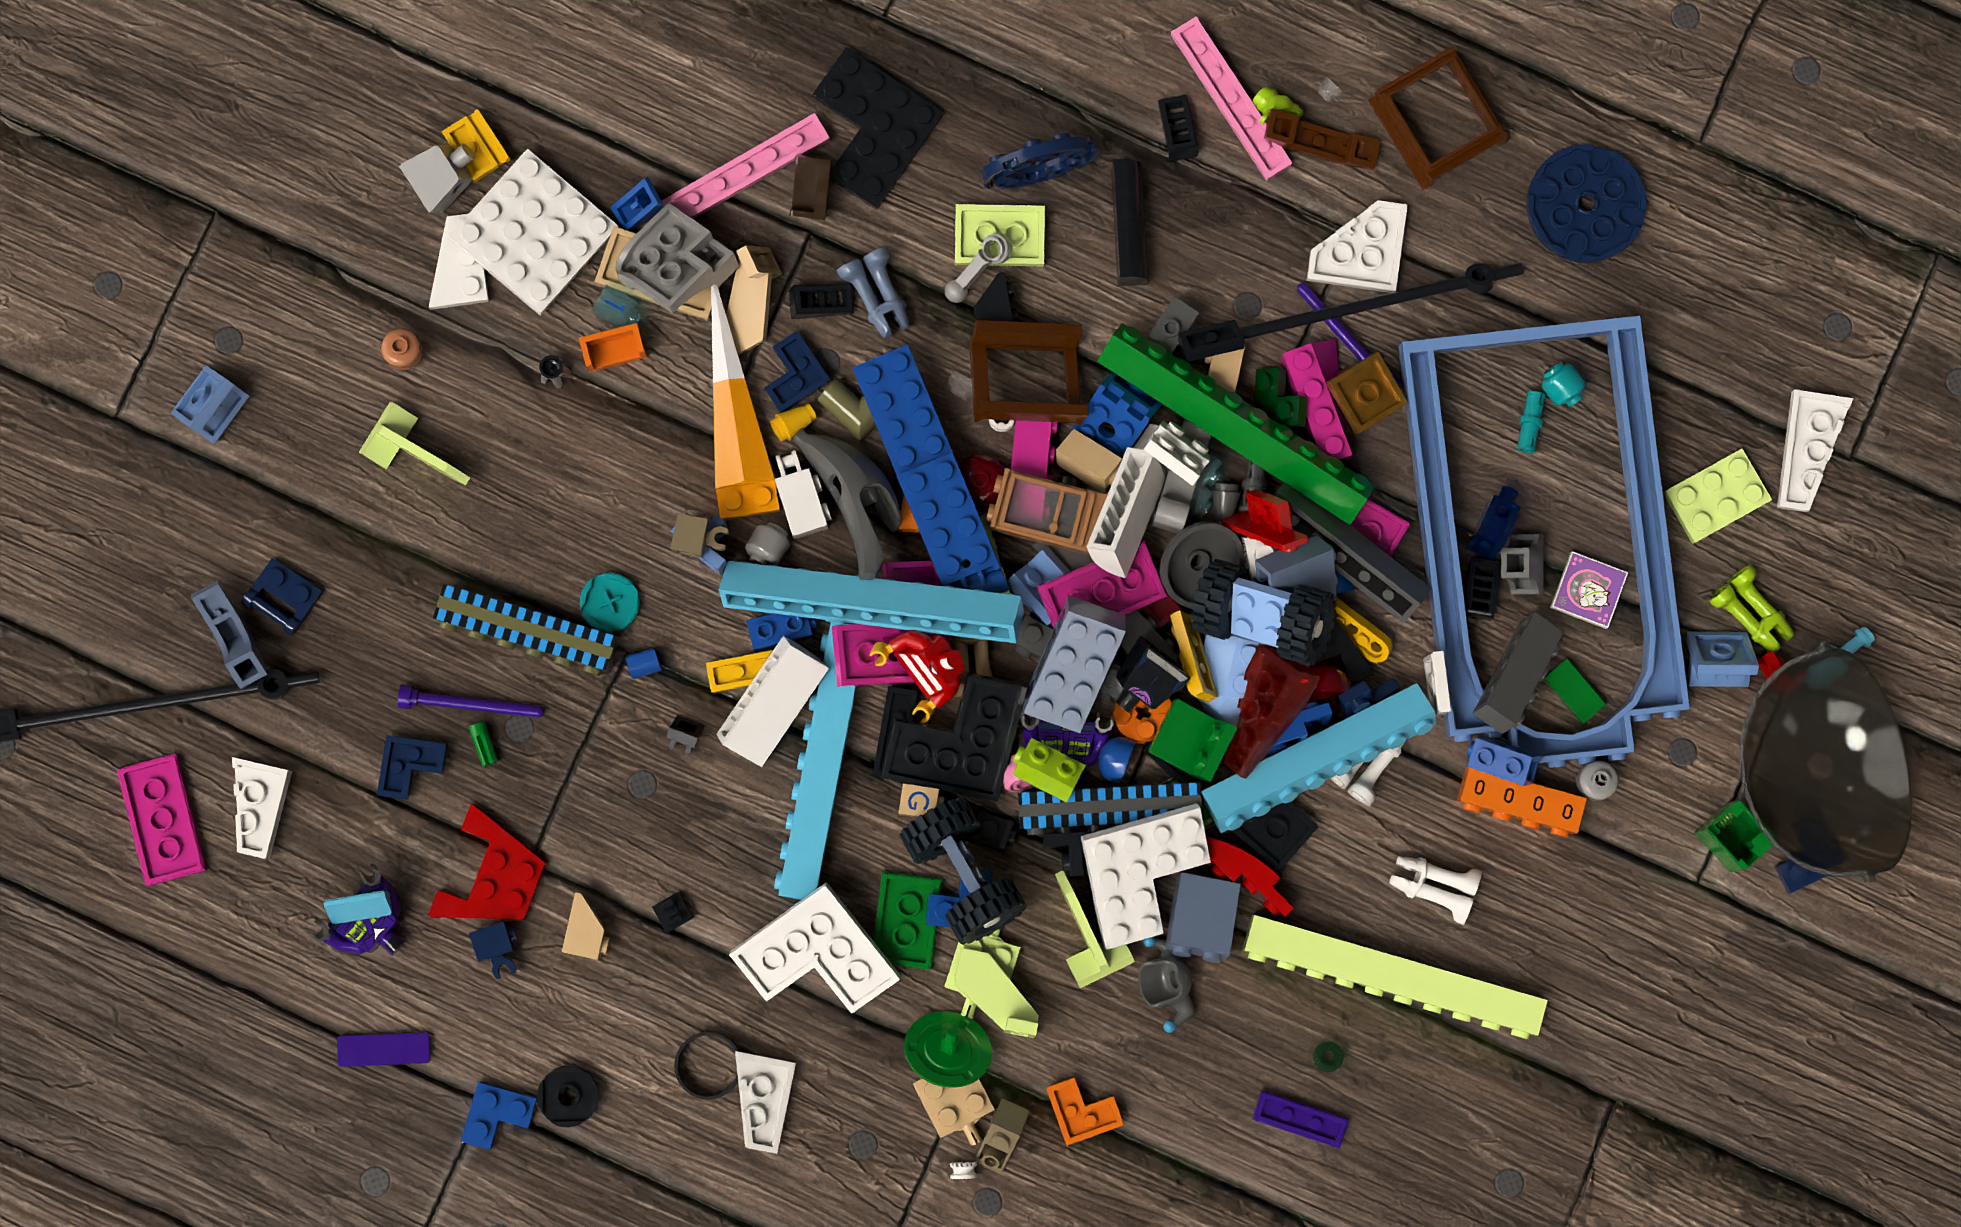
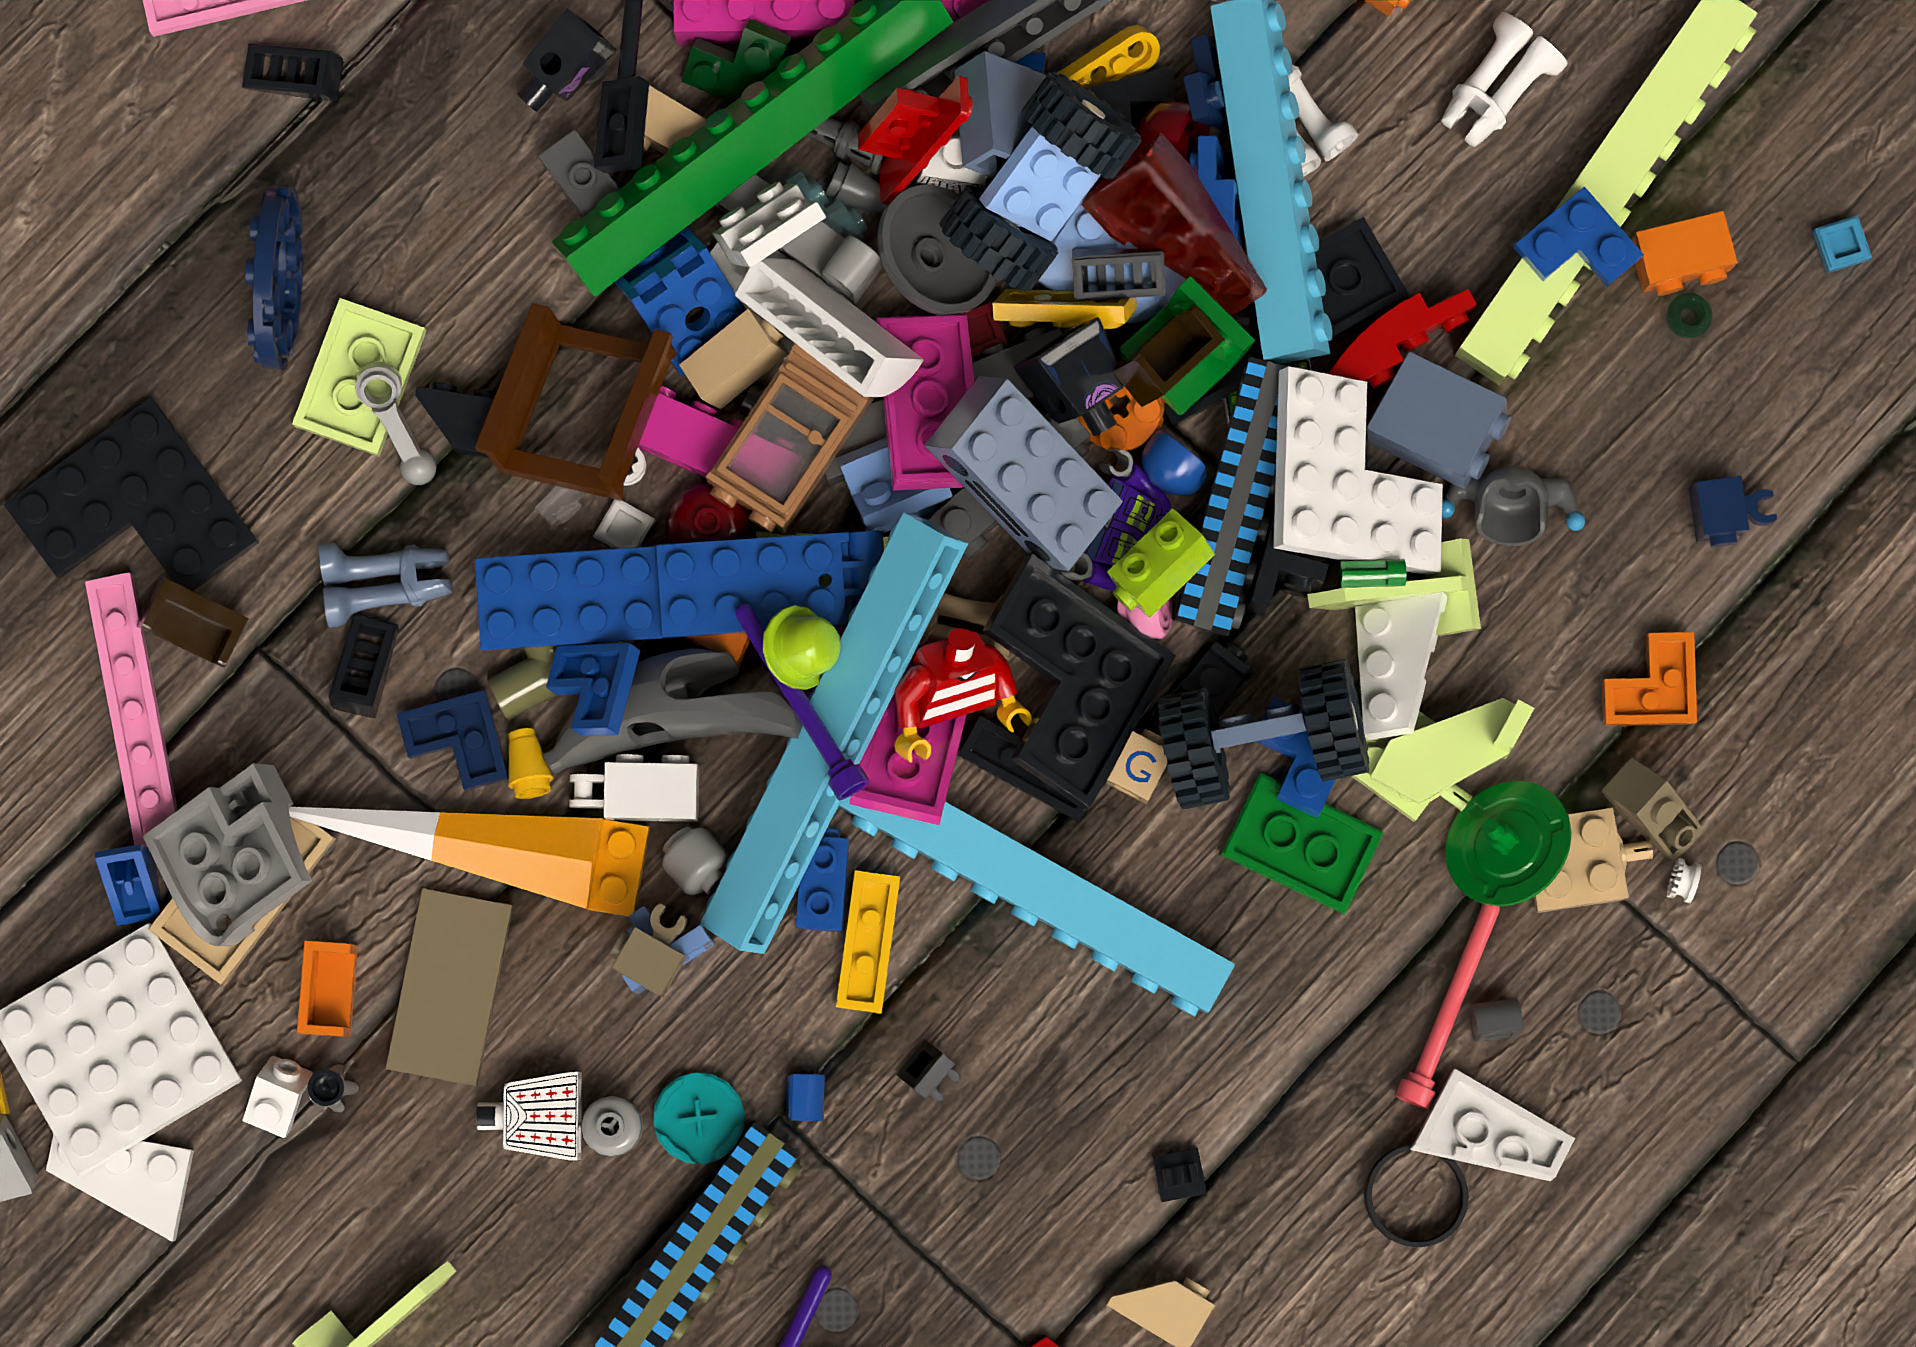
camera: 65 degrees left, 0 degrees up
(401, 349) = (221, 1300): nougat head -> none
(538, 339) = (277, 1096): none -> white bracket
(577, 503) = (538, 1116): none -> white torso
(596, 553) = (629, 1129): none -> light grey head
(616, 308) = (271, 964): clear light blue brick -> none
(639, 422) = (449, 987): none -> dark tan tile
(750, 296) = (323, 763): tan piece -> none
(772, 701) = (925, 928): white brick -> none
(777, 1044) = (1418, 1085): none -> coral piece
(822, 936) = (1283, 981): white plate -> none
(835, 1079) = (1496, 1019): none -> dark grey brick
(845, 615) = (844, 774): none -> dark purple piece
(858, 447) = (602, 679): none -> blue plate
(916, 561) = (800, 647): none -> lime hat
(961, 431) = (624, 526): none -> white tile
(1040, 938) = (1393, 660): none -> white wing
(1088, 905) = (1372, 573): none -> green piece
(1129, 222) = (407, 187): black brick -> none
(1181, 730) = (1168, 355): none -> dark brown panel
(1209, 1118) = (1723, 510): none -> dark blue brick
(1211, 675) = (1118, 256): none -> black slope
(1253, 293) = (581, 55): none -> black torso
(1300, 1119) = (1763, 385): dark purple tile -> none
(1356, 965) = (1584, 229): none -> blue plate
(1366, 1039) = (1684, 253): none -> orange brick
(1409, 1140) = (1842, 244): none -> dark azure tile

